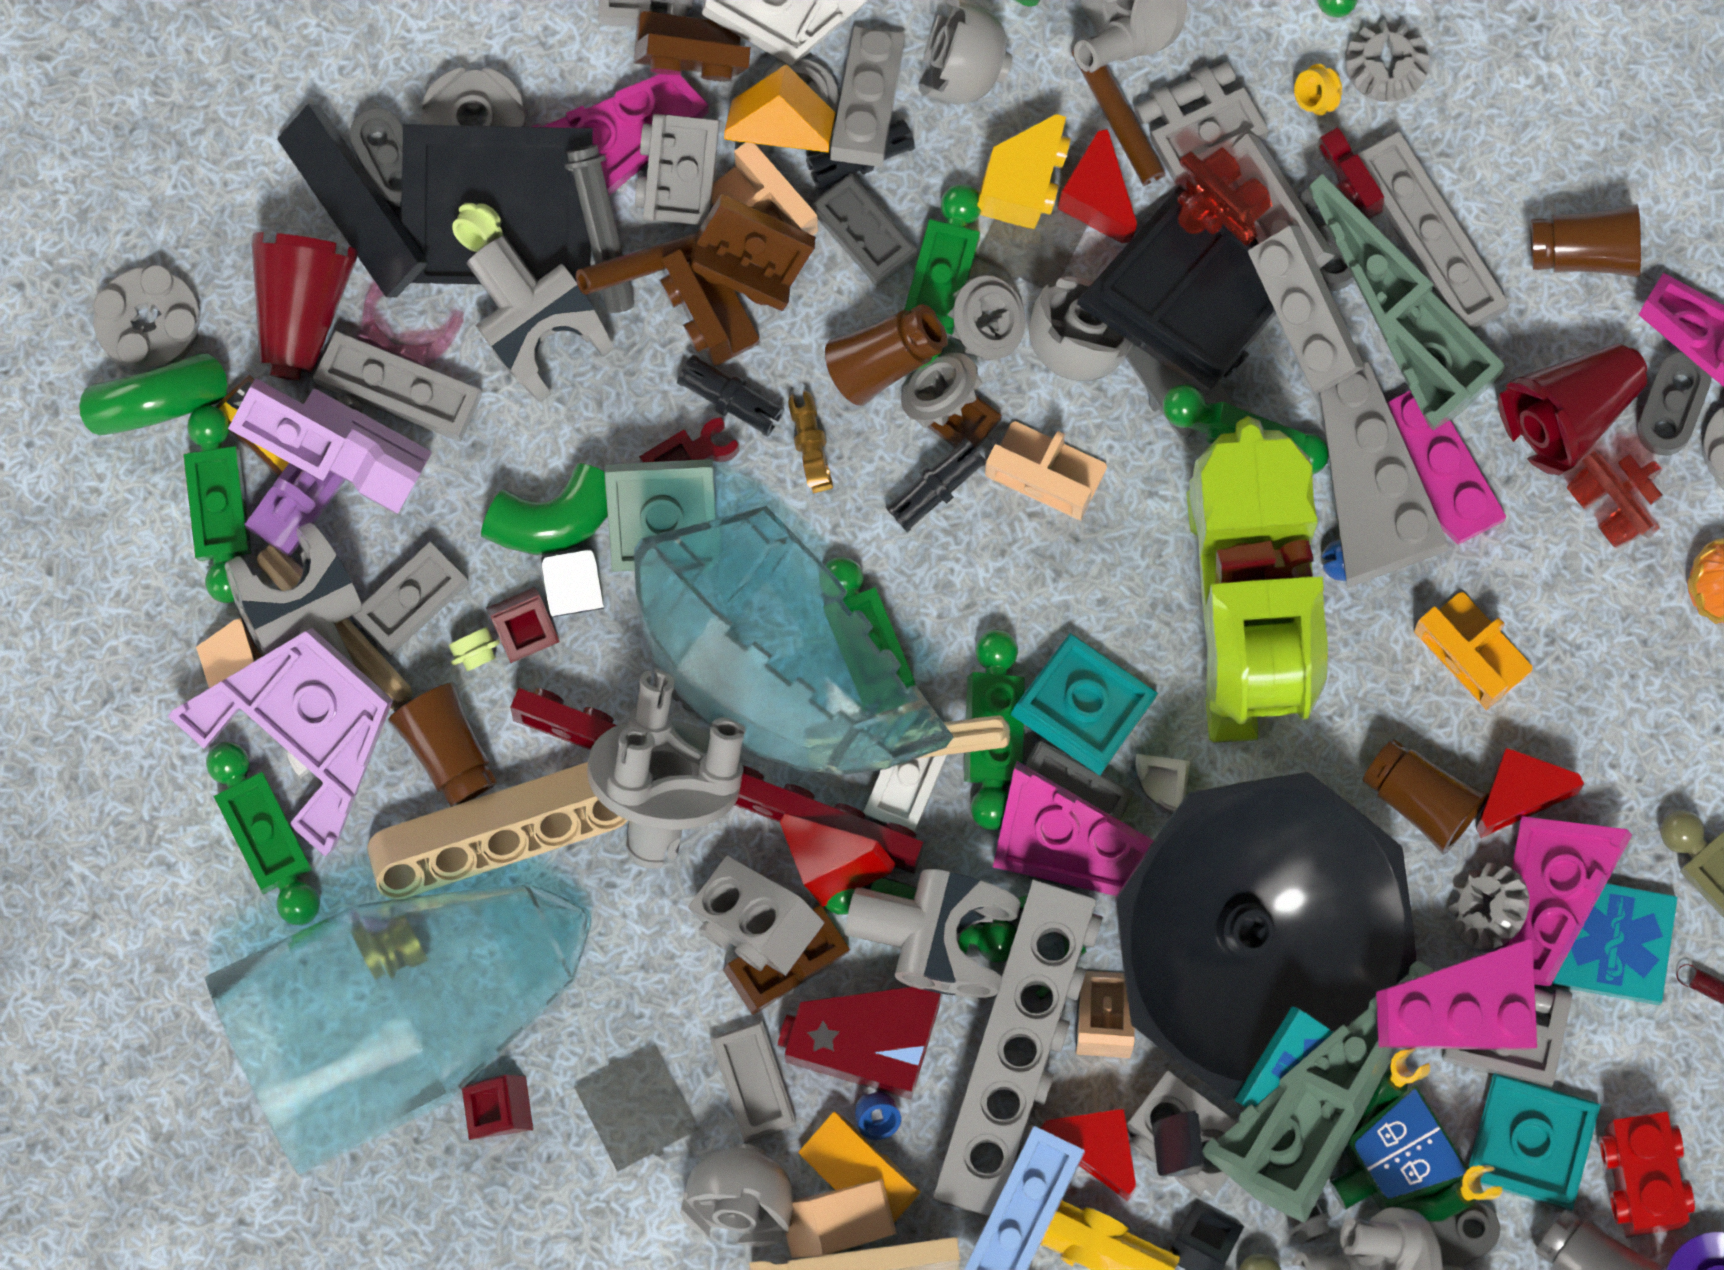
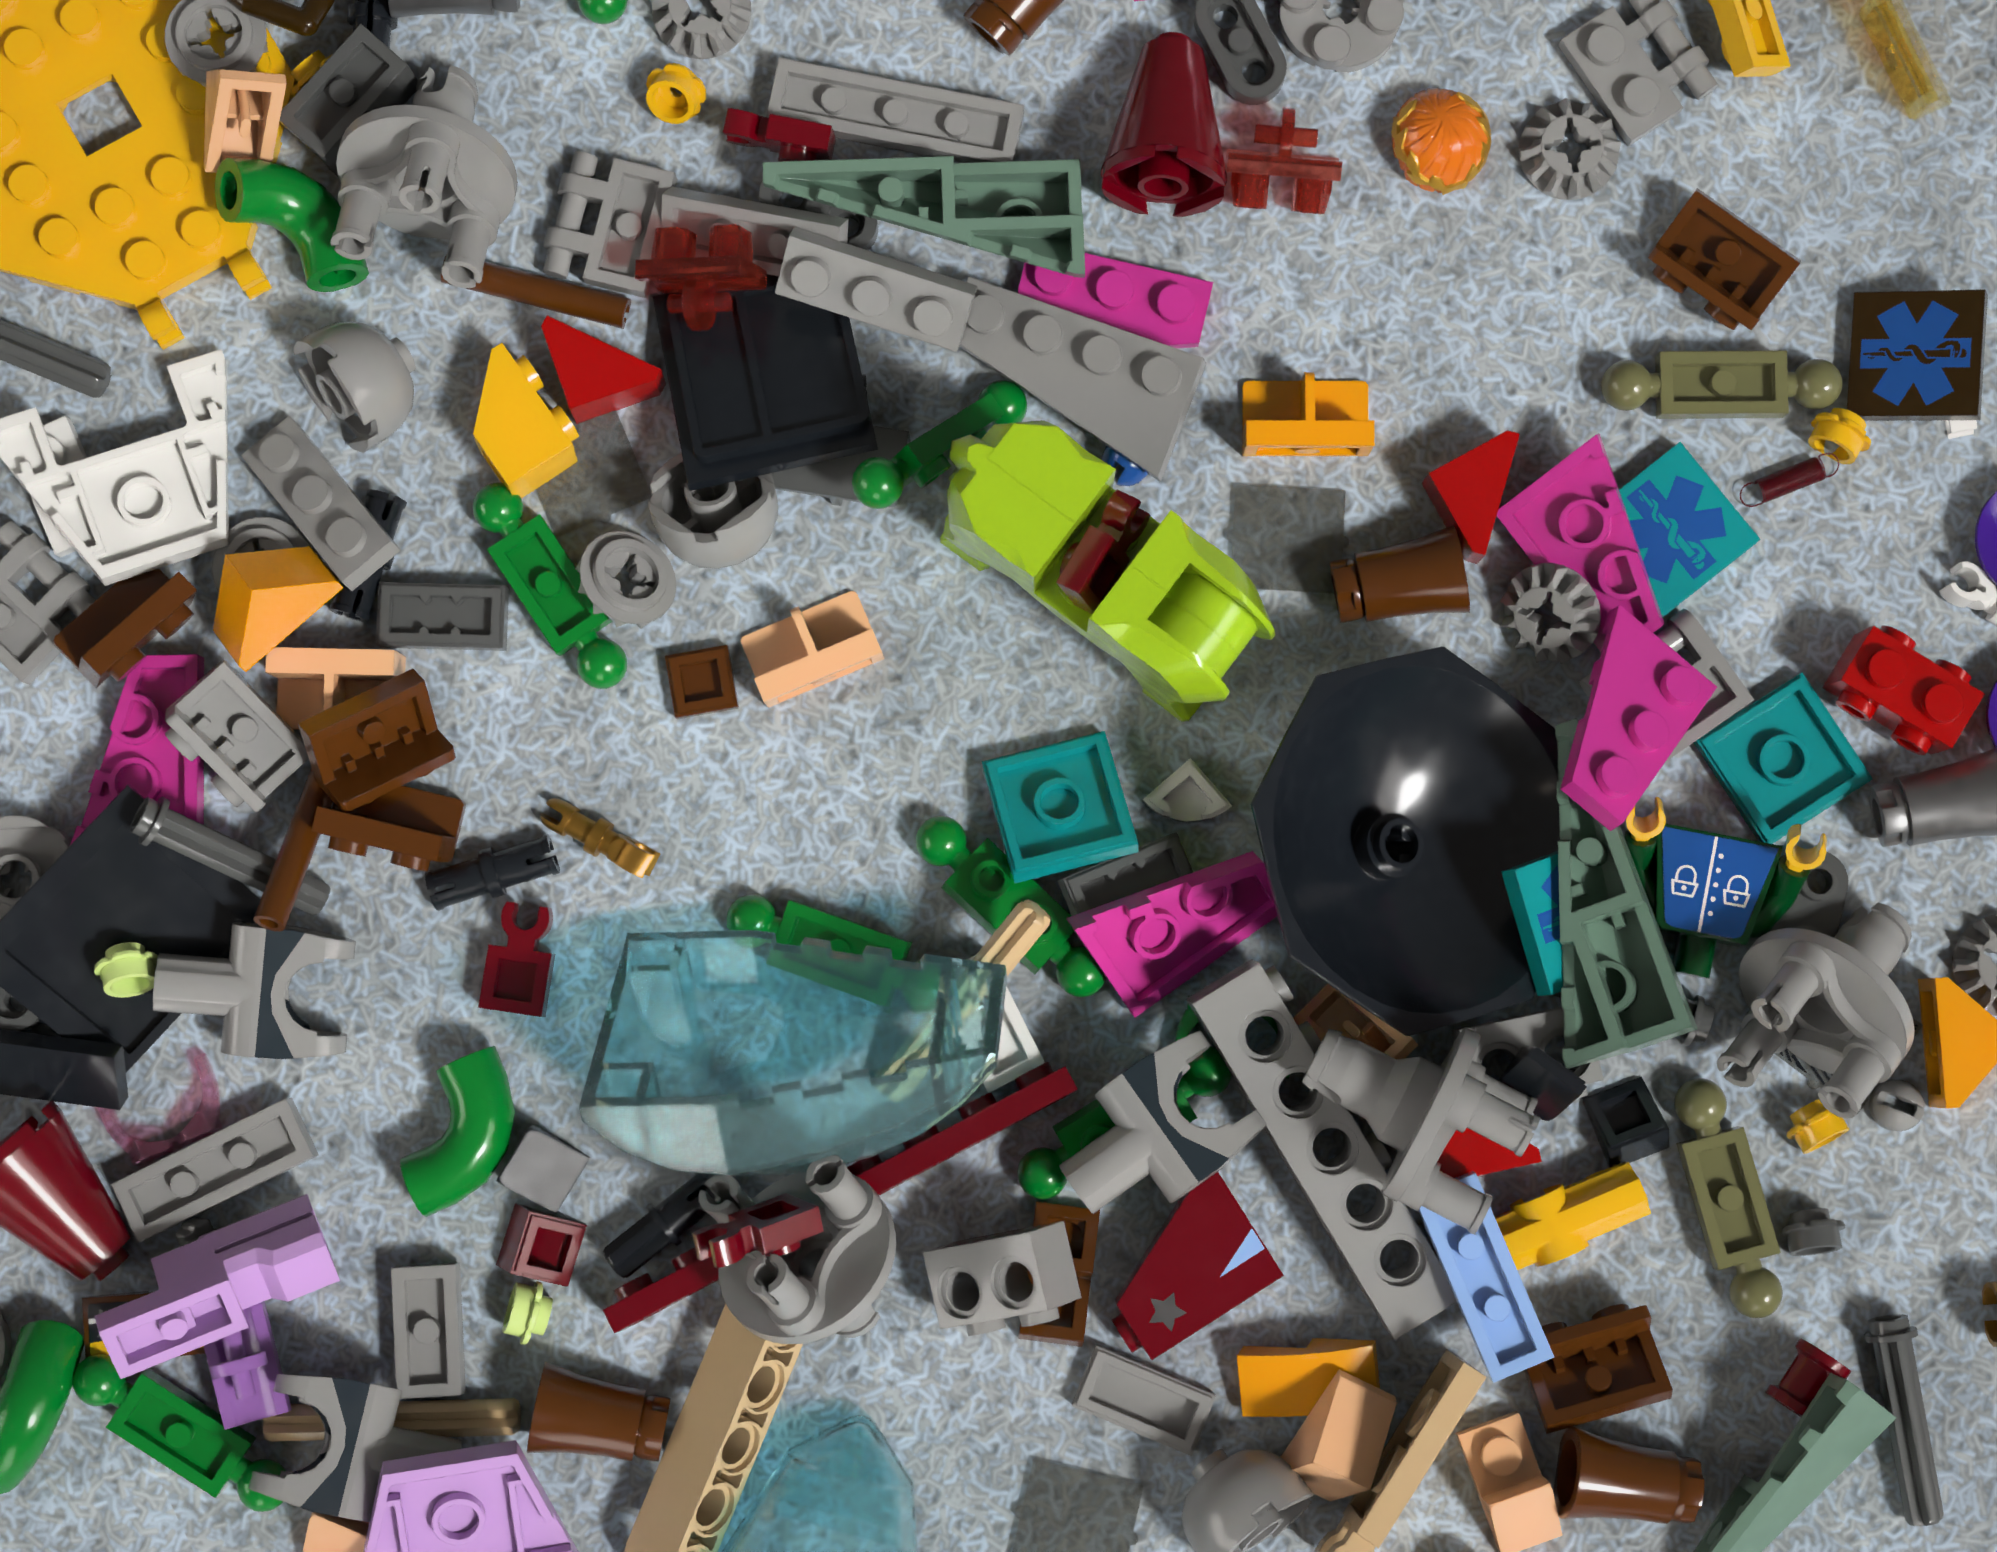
camera: 45 degrees left, 10 degrees up
(594, 684) = (658, 1228): none -> black axle
(655, 500) = (543, 1036): sand green plate -> none
(666, 726) = (767, 1227): none -> dark red plate
(833, 858) = (1008, 1165): red slope -> none
(882, 1127) = (1272, 1329): blue hinge -> none
(883, 353) = (580, 704): reddish brown plant -> none
(928, 382) = (639, 684): light grey gear -> none
(936, 484) = (741, 761): black pin -> none
(1091, 1073) = (1418, 1111): none -> light grey piece
(1386, 702) = (1288, 536): none -> clear smoke piece

